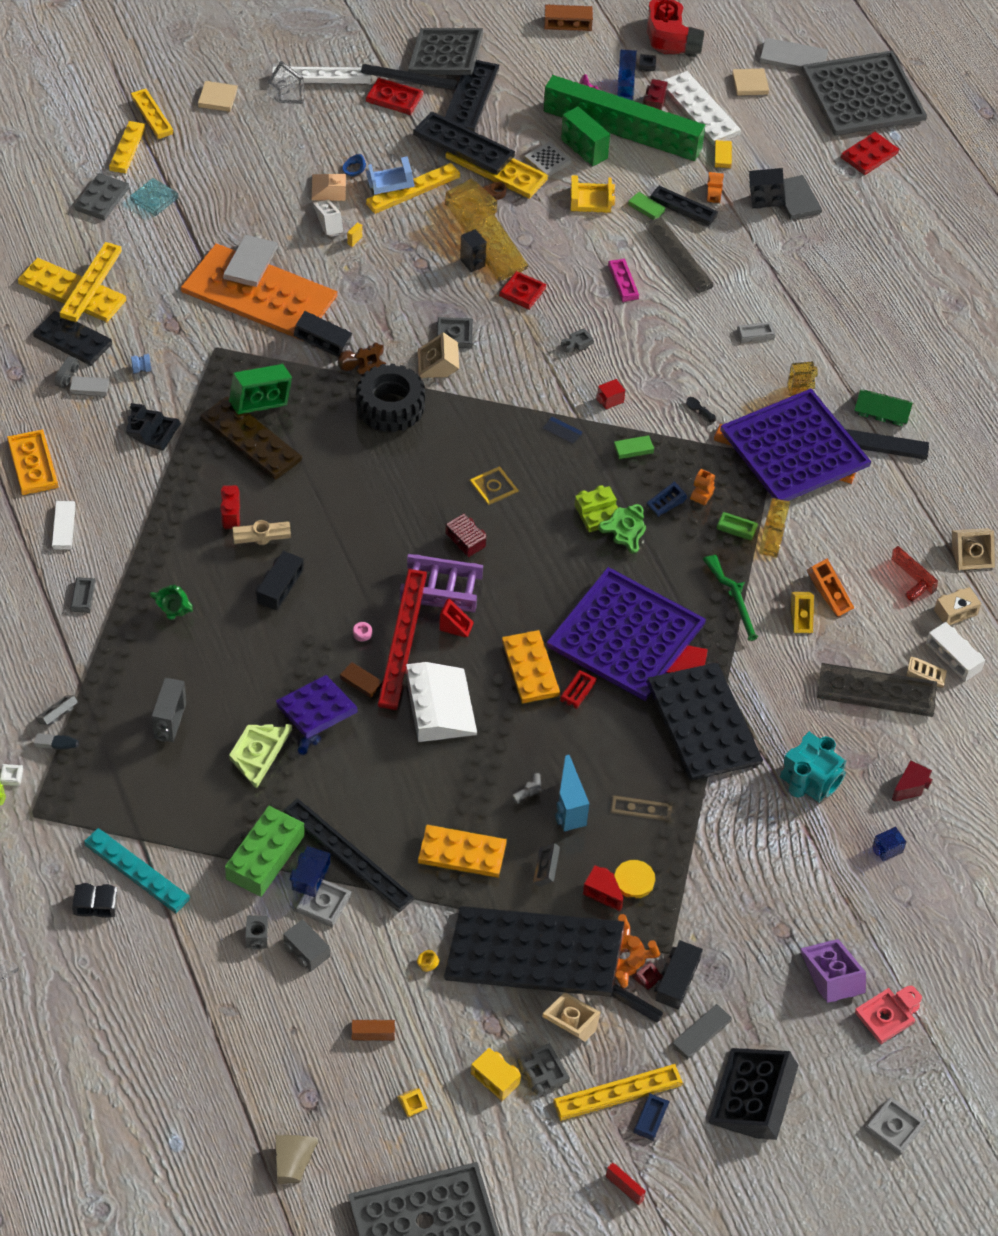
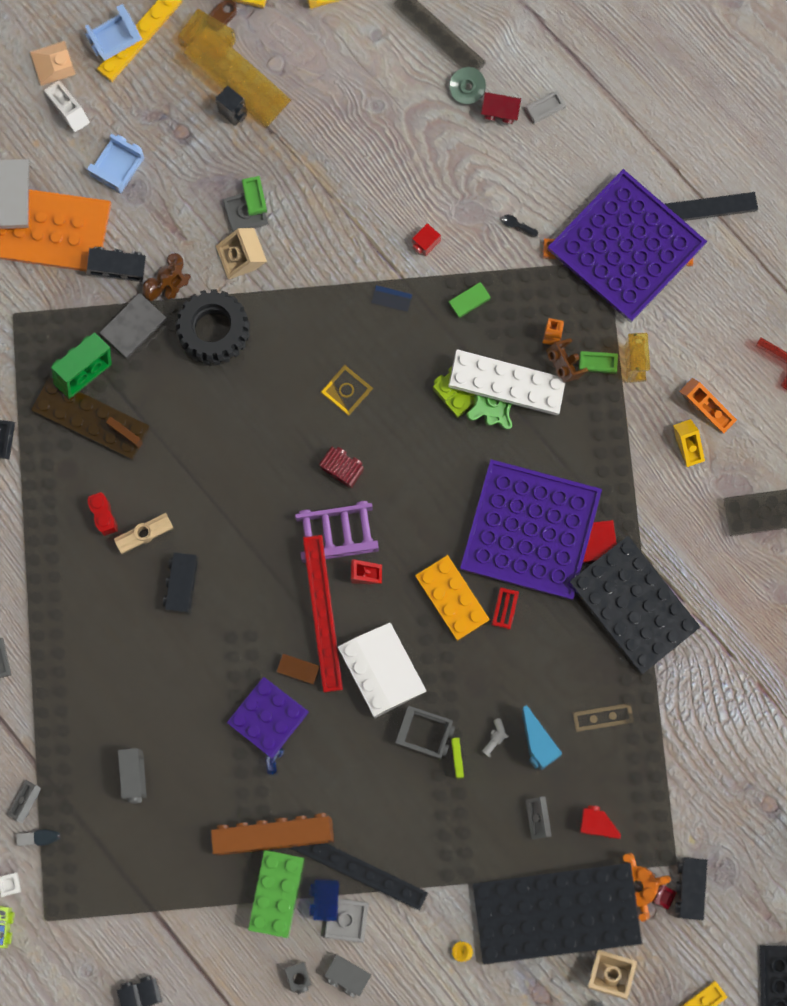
camera: 10 degrees left, 25 degrees up
(137, 870) = (164, 947): teal plate -> none
(172, 601) = (89, 646): green hair -> none
(258, 749) = (229, 783): yellowish green wing -> none
(277, 449) = (124, 432): none -> reddish brown tile
(290, 799) = (272, 835): none -> dark orange brick
(319, 382) = (133, 325): none -> flat silver tile
(354, 234) = (102, 121): yellow tile -> none
(354, 267) = (117, 163): none -> light blue panel
(358, 158) = (65, 19): blue piece -> none
(362, 631) = (280, 612): bright pink tile -> none
(446, 751) = (411, 711): none -> dark grey window
(462, 851) = (456, 826): light orange plate -> none
(467, 320) = (254, 195): none -> bright green tile
(485, 792) = (457, 758): none -> lime tile
(522, 290) = (295, 132): red tile -> none
(578, 339) = (373, 180): dark grey plate -> none
(623, 280) = (392, 84): dark pink tile -> none
(635, 878) = (622, 802): yellow tile -> none
(637, 1003) = (665, 930): black axle -> none
(645, 511) = (506, 382): none -> white plate
(667, 492) = (519, 345): dark blue slope -> none
(690, 290) = (466, 76): none -> sand green dish
(702, 1031) = (729, 938): dark grey tile -> none
(705, 518) = (563, 363): none -> reddish brown window
(715, 317) = (500, 107): none -> dark red brick
(736, 590) = (591, 419): green piece -> none
(801, 377) = (610, 159): clear yellow brick -> none
(813, 768) = (756, 628): teal piece -> none
(883, 407) = (699, 161): green slope -> none

